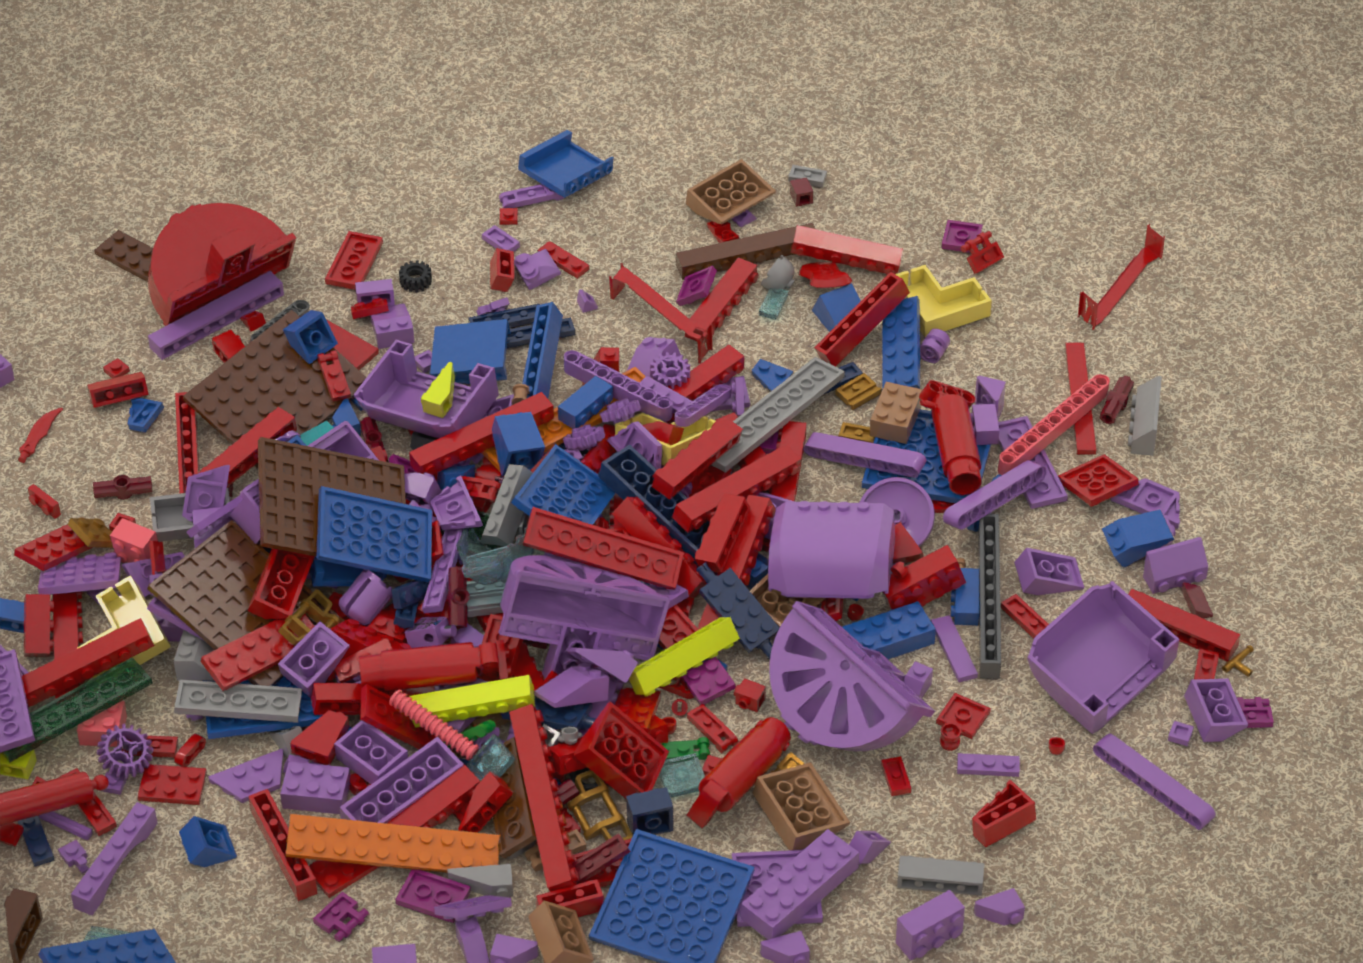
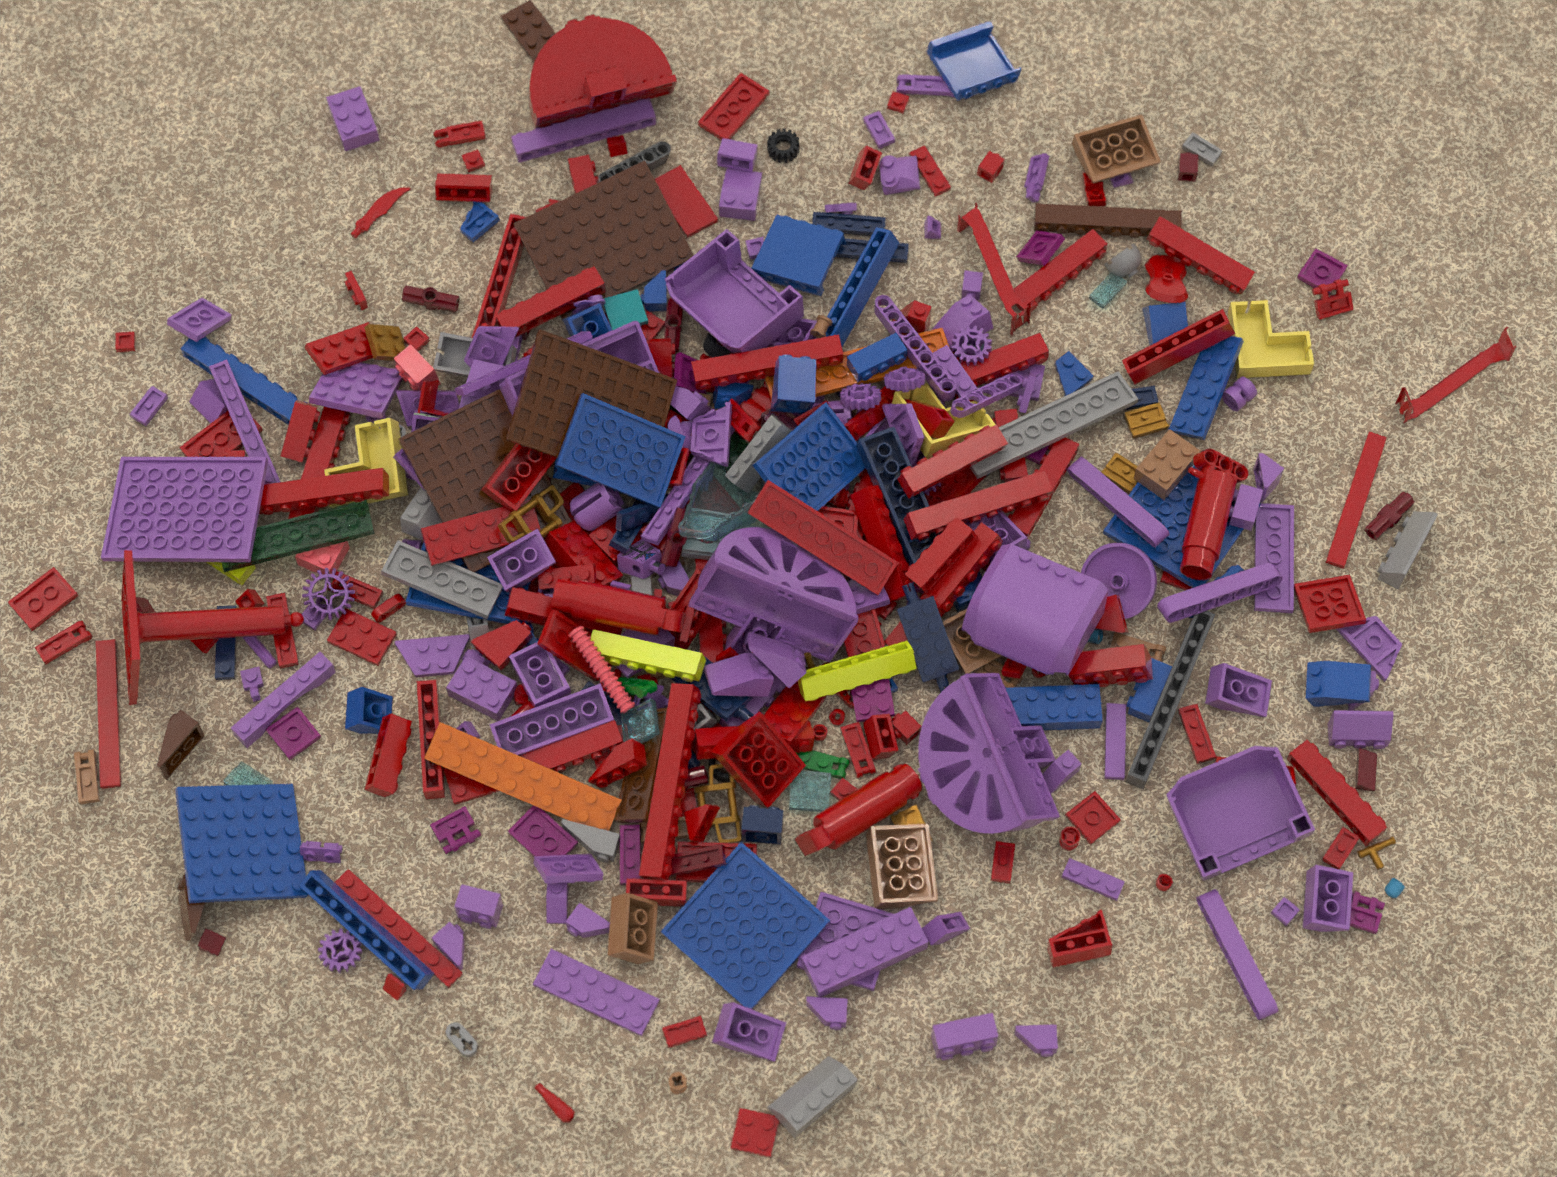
camera: 20 degrees right, 20 degrees up
(94, 351) = (460, 134): none -> red hinge
(136, 885) = (293, 733): none -> magenta plate
(244, 872) = (388, 755): none -> red brick
(310, 335) = (650, 197): blue slope -> none
(334, 376) = (660, 244): red plate -> none
(376, 306) = (726, 171): red plate -> none
(439, 396) = (749, 299): neon yellow slope -> none
(526, 879) = (629, 852): none -> magenta plate
(569, 735) = (718, 724): light grey plate -> none
(587, 825) = (700, 821): none -> red slope
(619, 239) = (991, 166): none -> red brick
(643, 329) = (972, 284): none -> medium lavender brick
(665, 235) = (1036, 176): none -> medium lavender hinge
(730, 707) = (880, 736): none -> red brick
(899, 570) = (1089, 653): red hinge -> none
(940, 875) = (998, 983): light grey brick -> none
(1054, 423) = (1307, 533): coral beam -> none
(1270, 685) = (1394, 888): none -> dark azure piece

